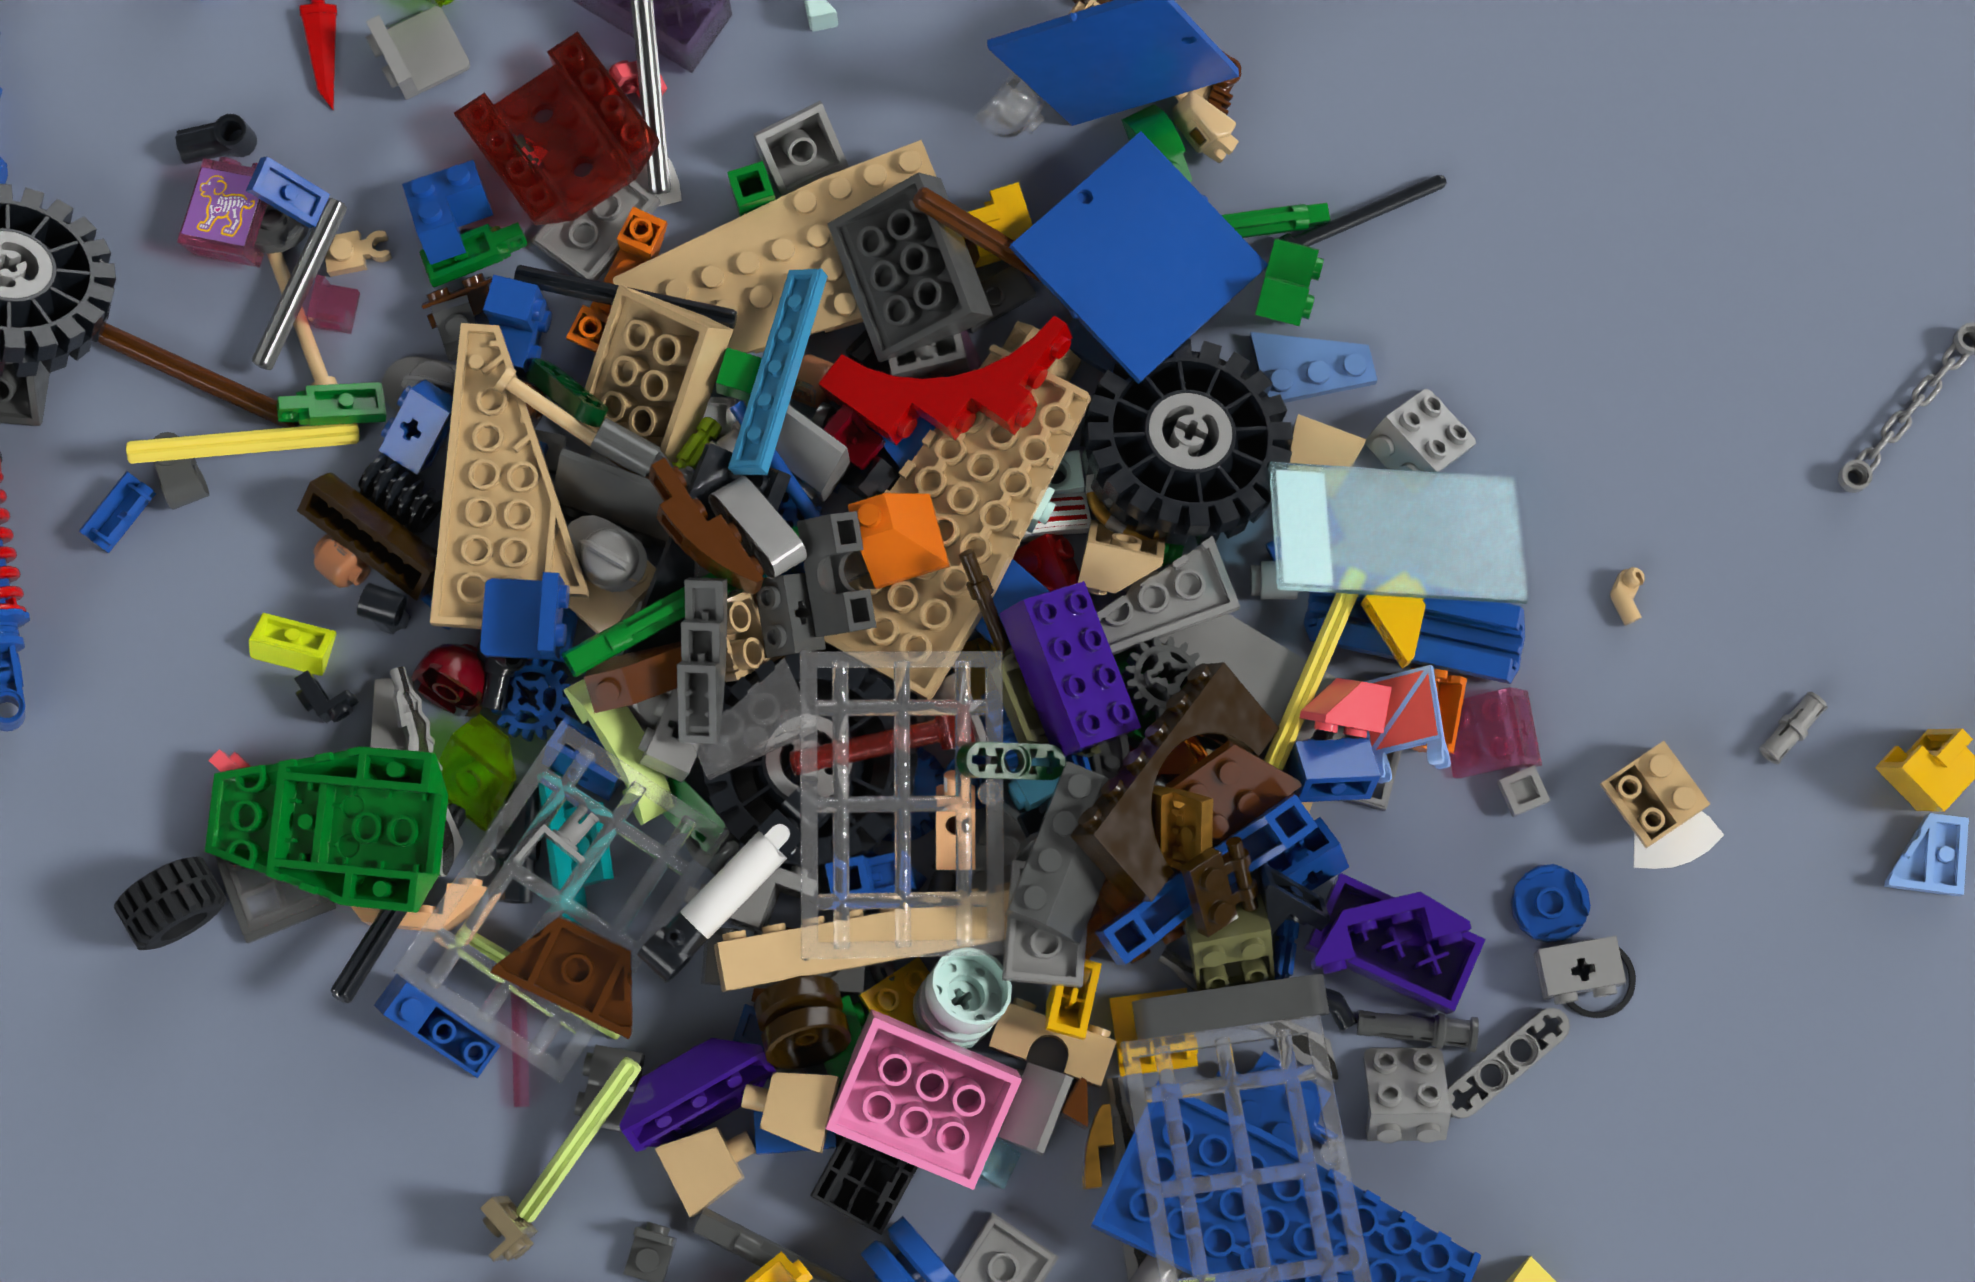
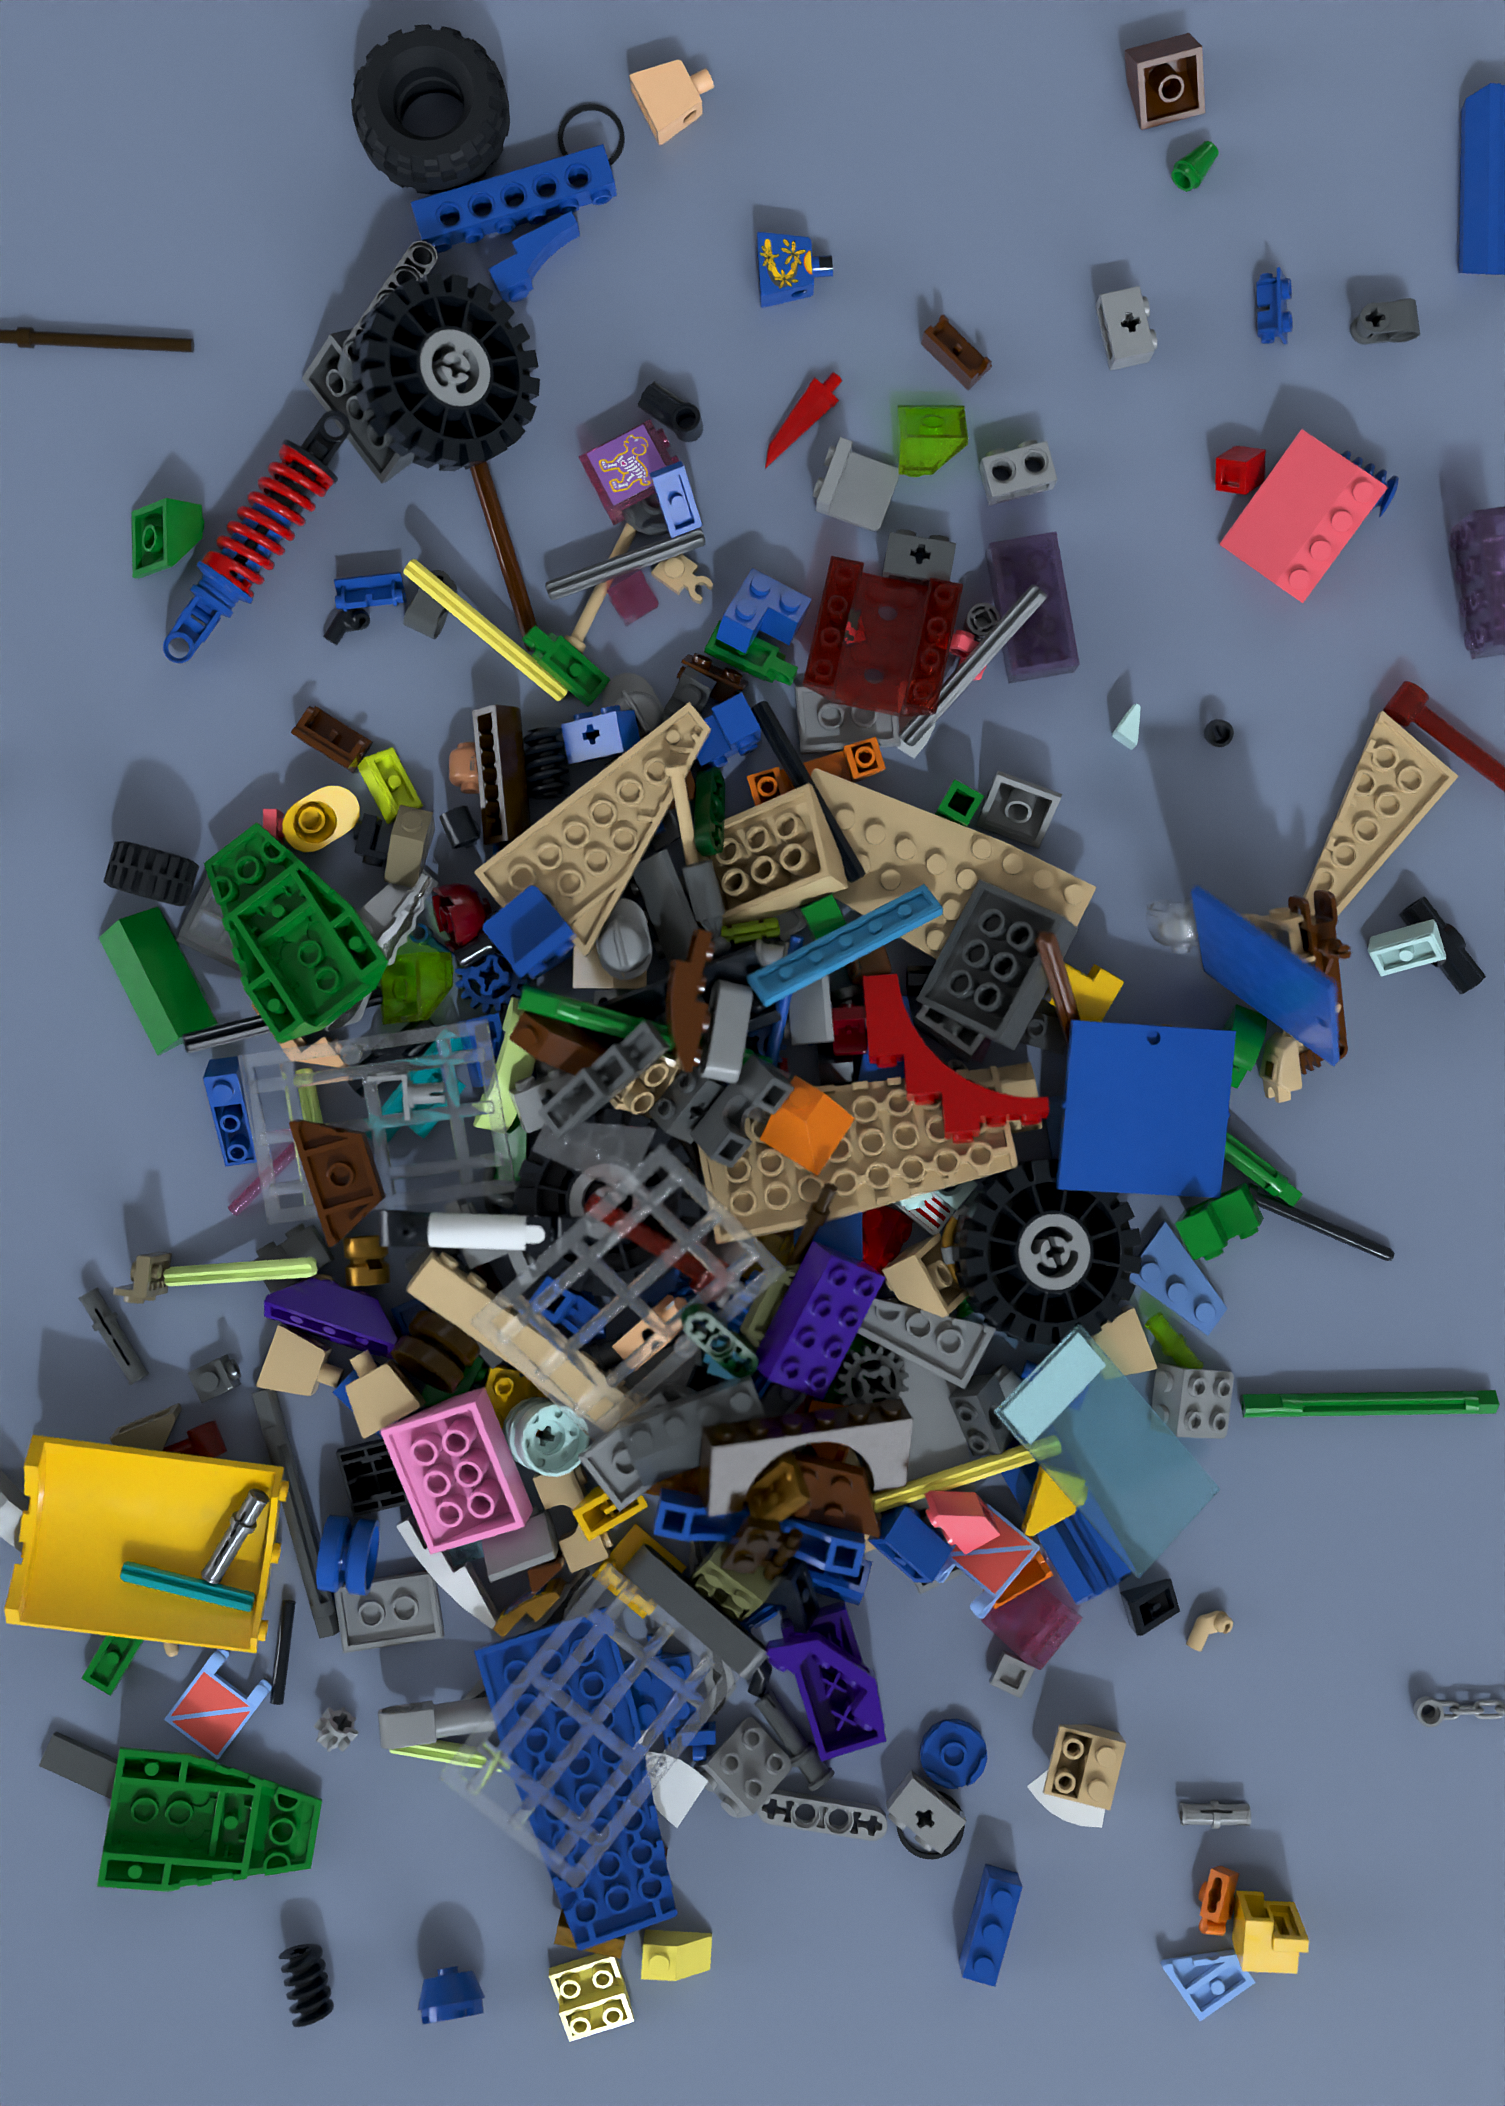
camera: 50 degrees right, 10 degrees up
(123, 555) = (344, 622): none -> black arm
(207, 656) = (332, 738): none -> reddish brown hinge
(260, 989) = (157, 978): none -> green slope
(263, 719) = (320, 818): none -> yellow piece
(357, 667) = (409, 846): none -> dark tan slope
(450, 727) = (429, 940): none -> hand
(509, 64) = (901, 552): none -> dark grey brick
(614, 37) = (980, 626): none -> flat silver wheel
(670, 1022) = (364, 1248): none -> pearl gold wheel
(1021, 1196) = (458, 1581): none -> white slope
(1278, 615) = (977, 1418): none -> dark grey brick
(1347, 1109) = (704, 1737): none -> blue tile
(1355, 413) = (1172, 1342): none -> clear neon green pin
(1375, 1165) = (677, 1790): none -> white sticker
(1501, 357) = (1369, 1403): none -> green piece
(1563, 625) = (1149, 1605): none -> black slope
(1727, 999) = (990, 1925): none -> blue brick
(1870, 789) = (1217, 1900): none -> orange piece

